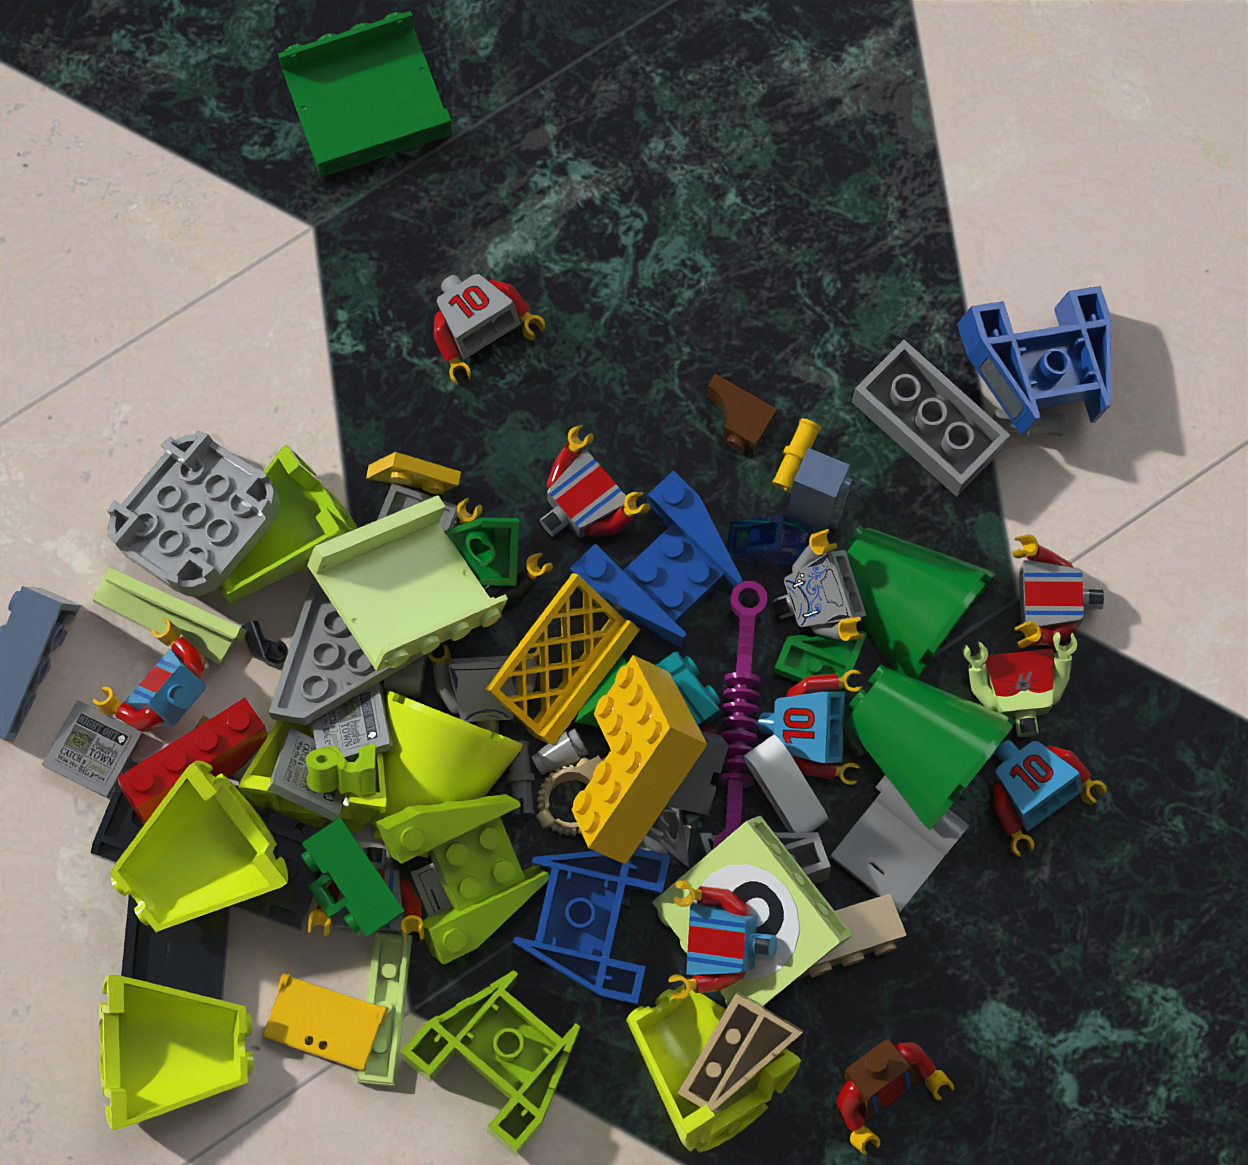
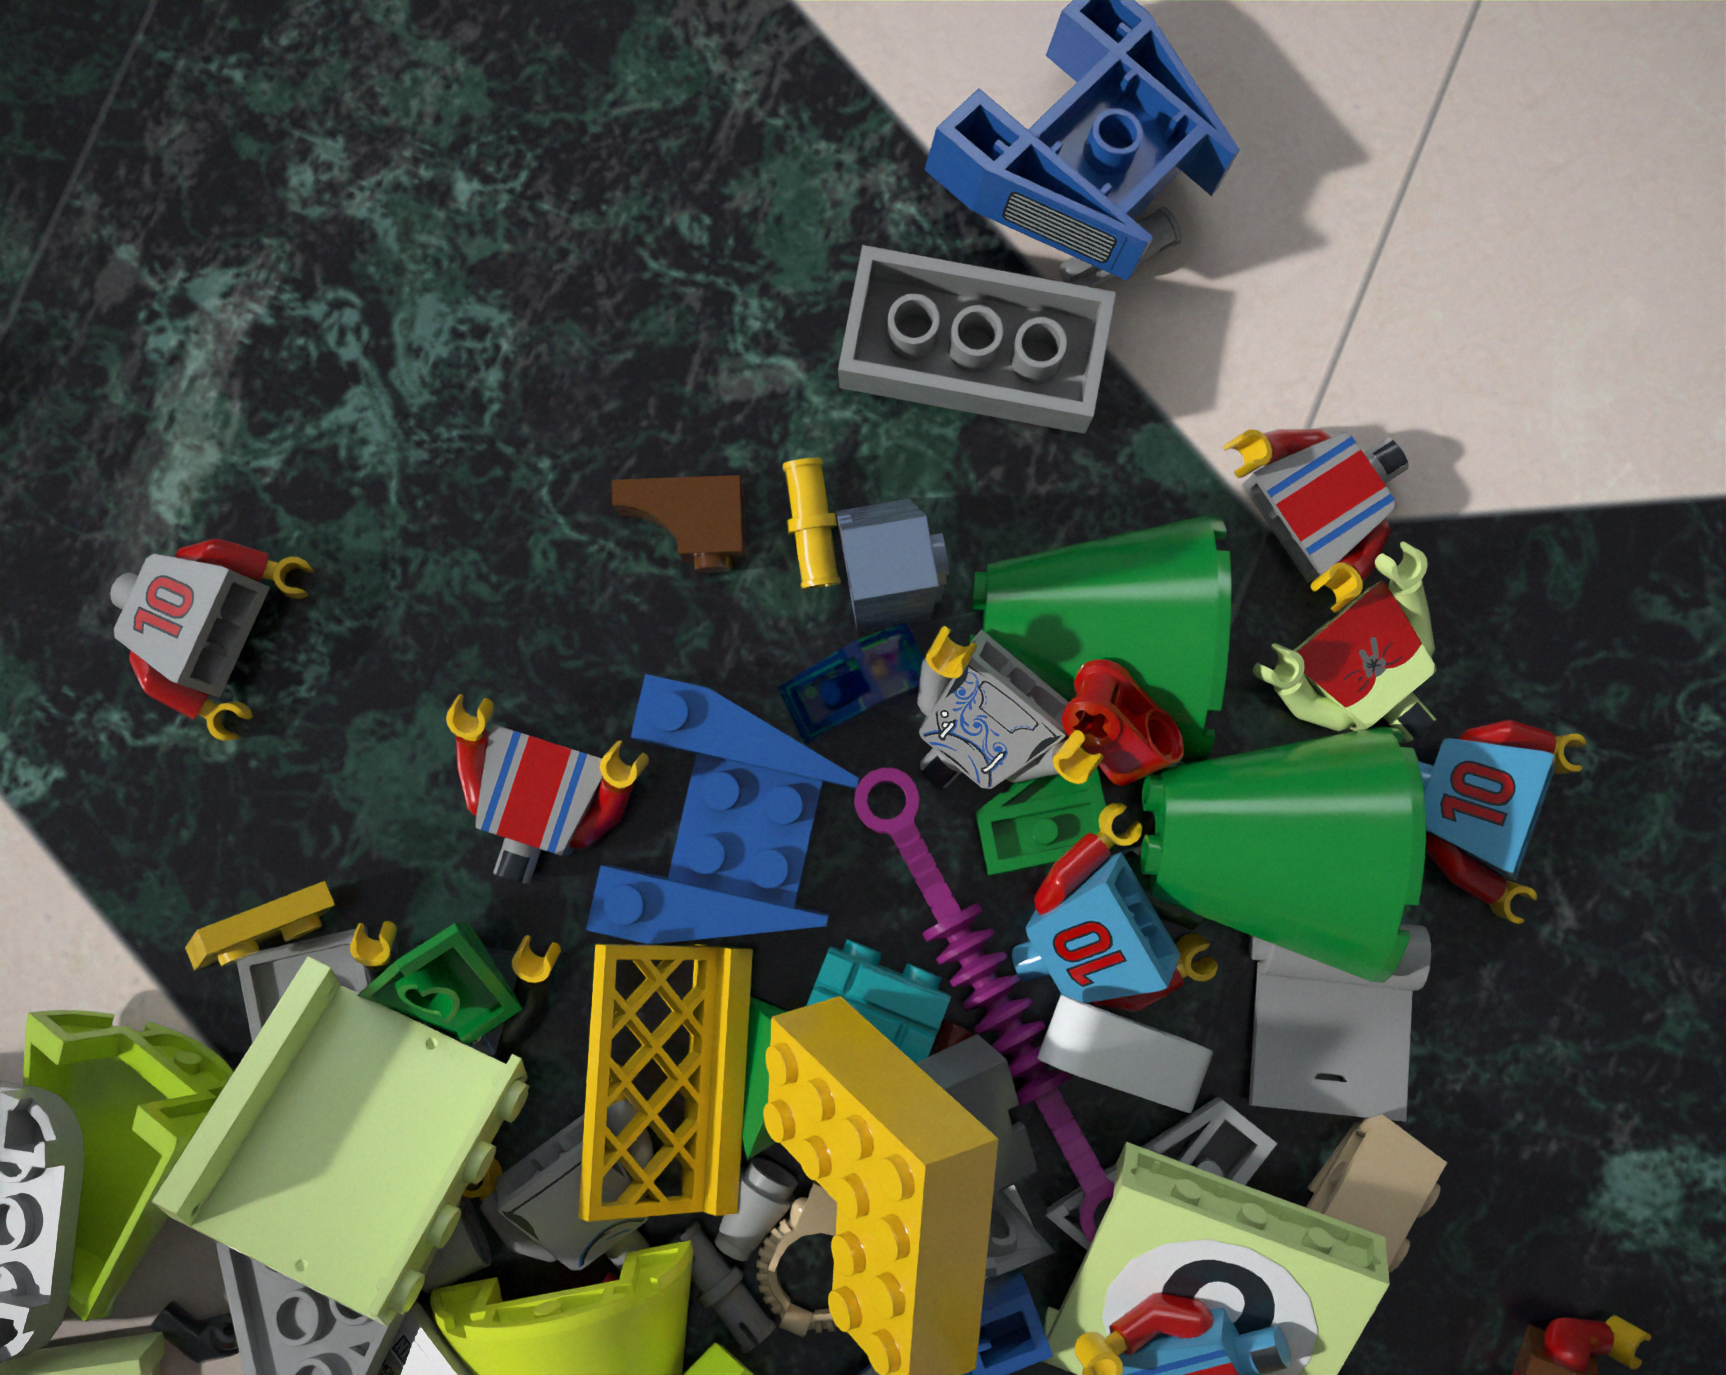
camera: 25 degrees left, 10 degrees up
(883, 634) = (1123, 728): none -> red piece

